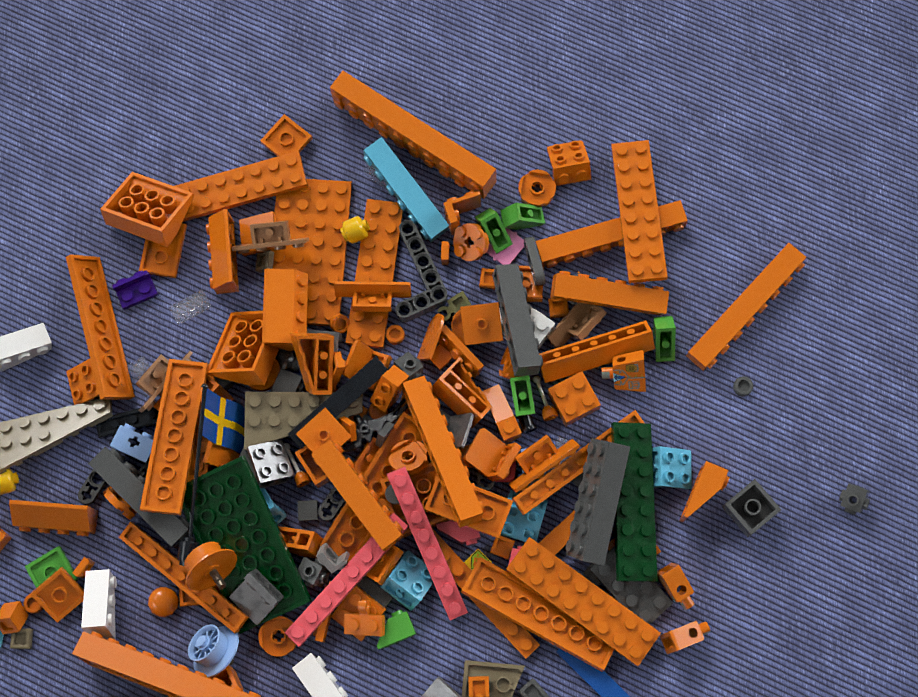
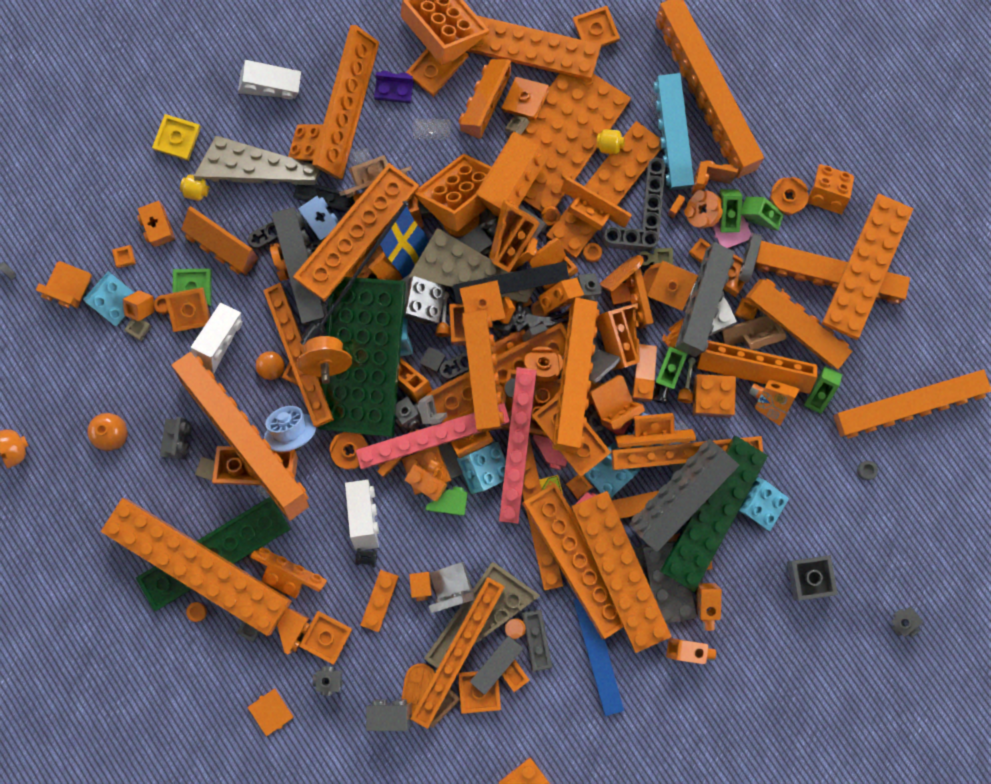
camera: 25 degrees right, 5 degrees up
(85, 565) = (222, 297): orange tile -> none
(256, 596) = (349, 406): flat silver bracket -> none
(270, 235) = (535, 105): medium nougat bracket -> none
(708, 482) = (786, 535): orange slope -> none

